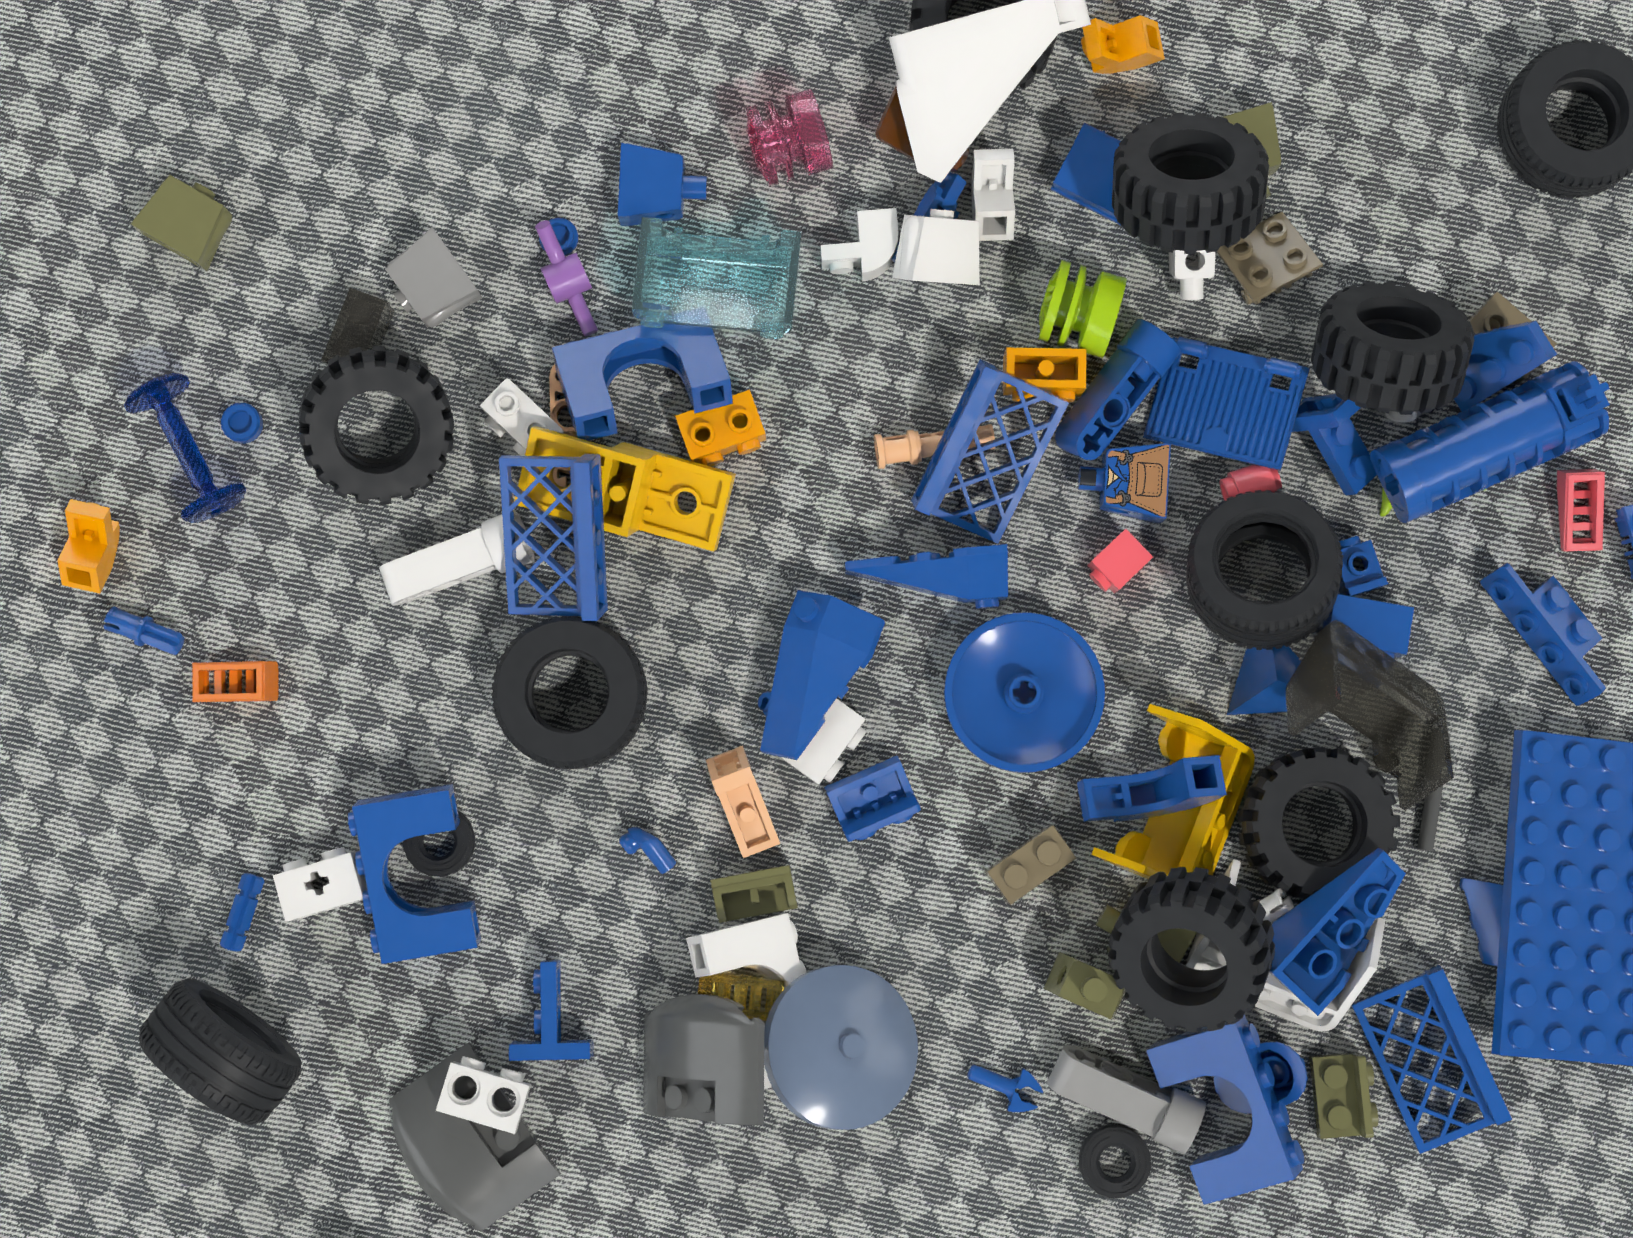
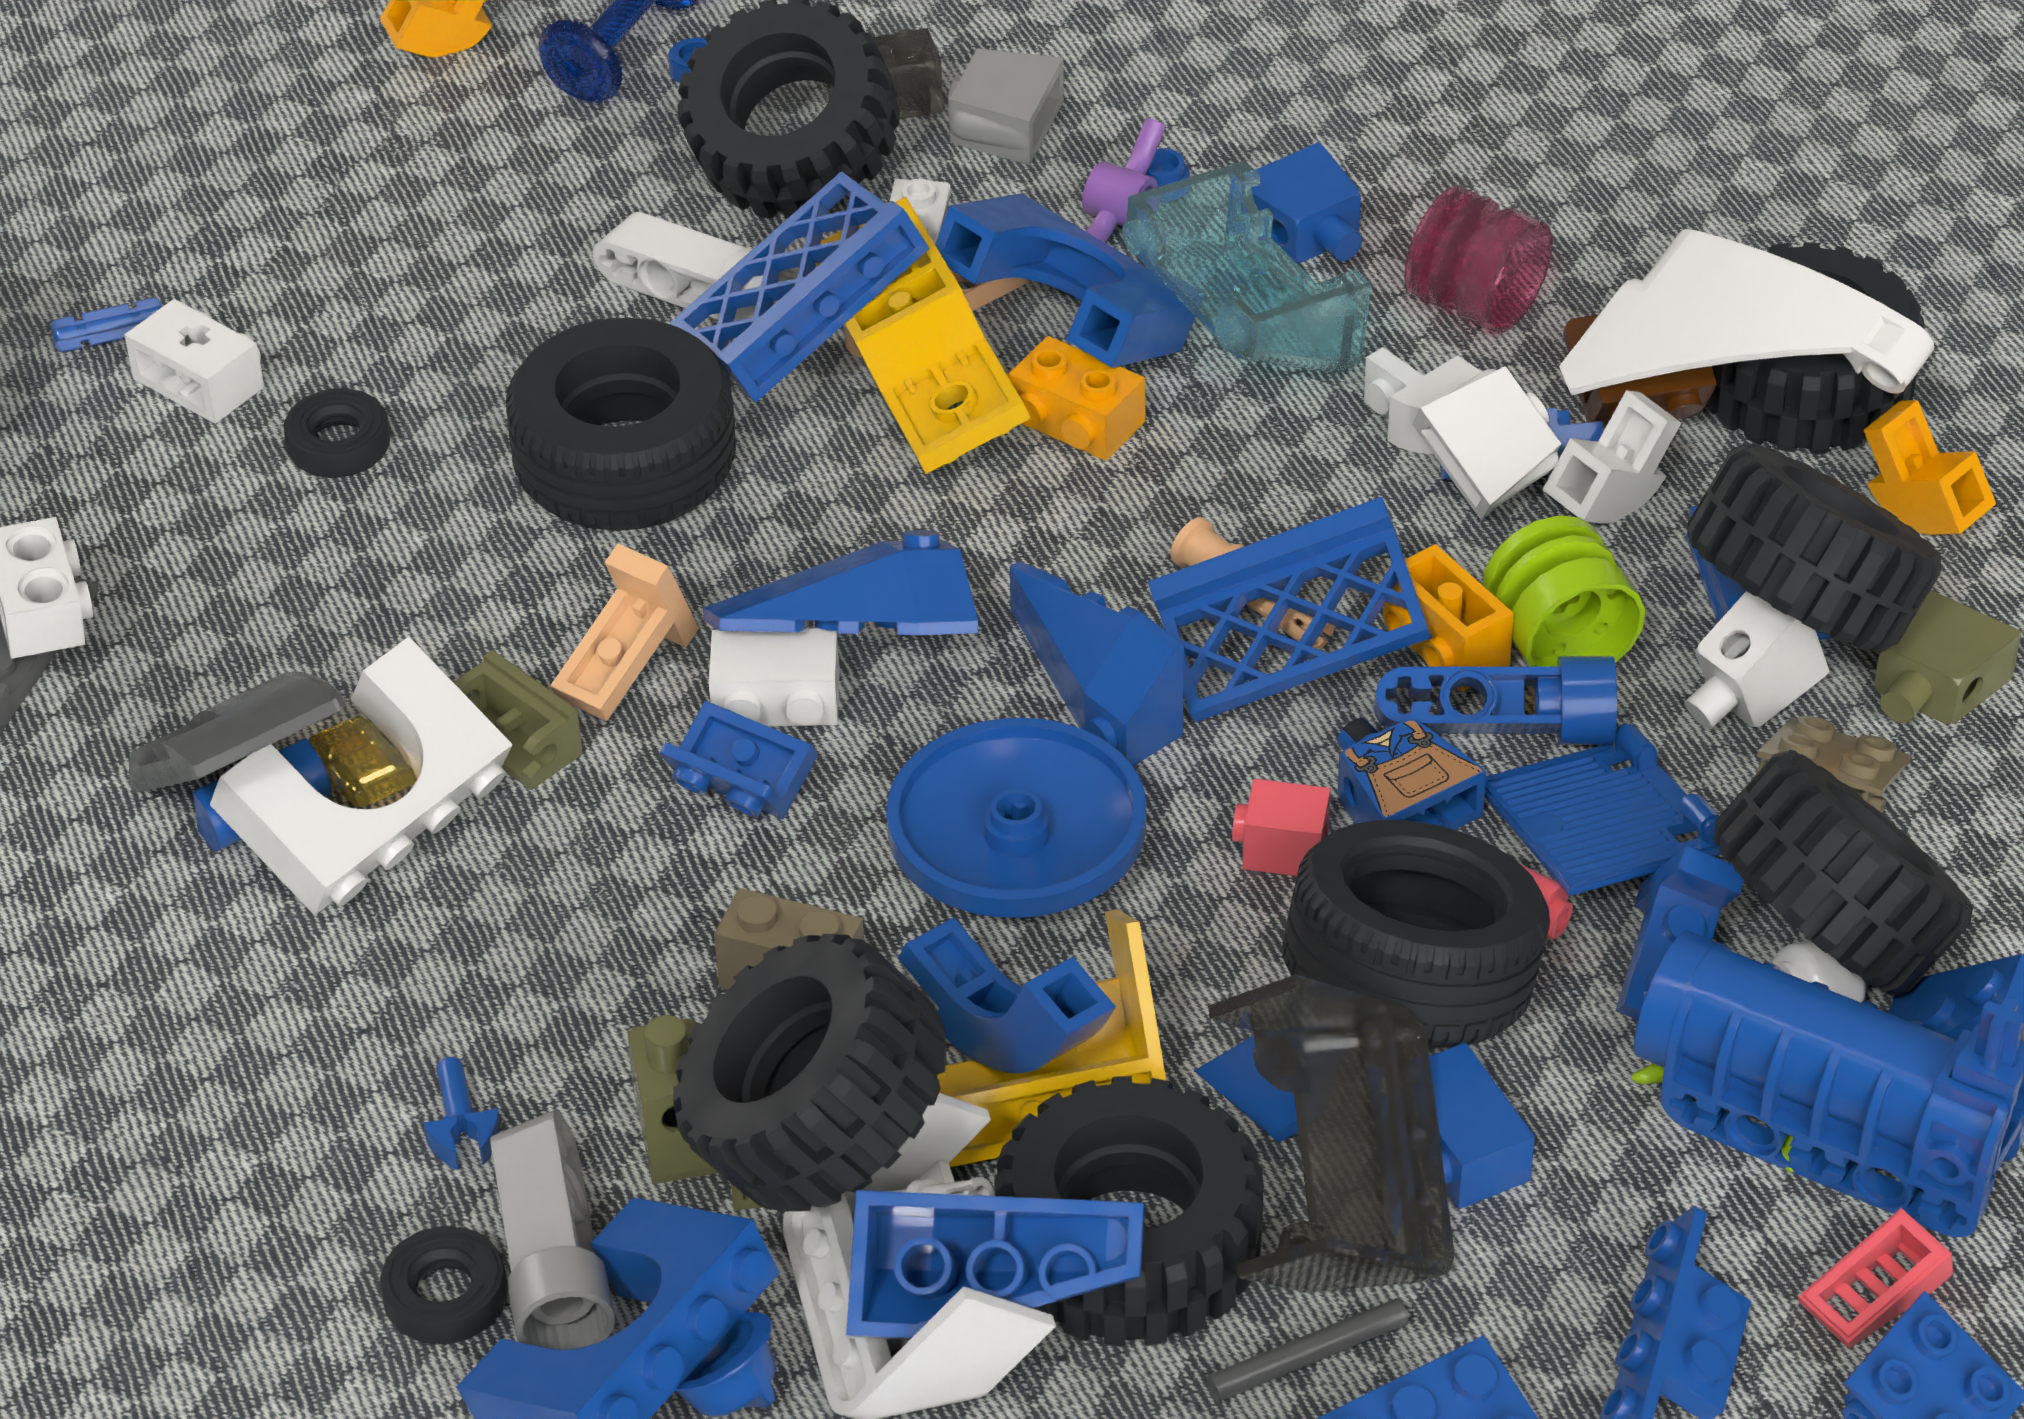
camera: 55 degrees right, 40 degrees down
(143, 631) = (382, 96): blue axle -> none
(261, 681) = (389, 195): orange slope -> none
(400, 927) = (304, 350): blue arch -> none
(548, 1022) = (185, 624): blue bracket -> none
(651, 846) = (490, 602): blue arm -> none
(840, 1047) = (371, 883): sand blue dish -> none
(1359, 582) = (1538, 1063): blue brick -> none

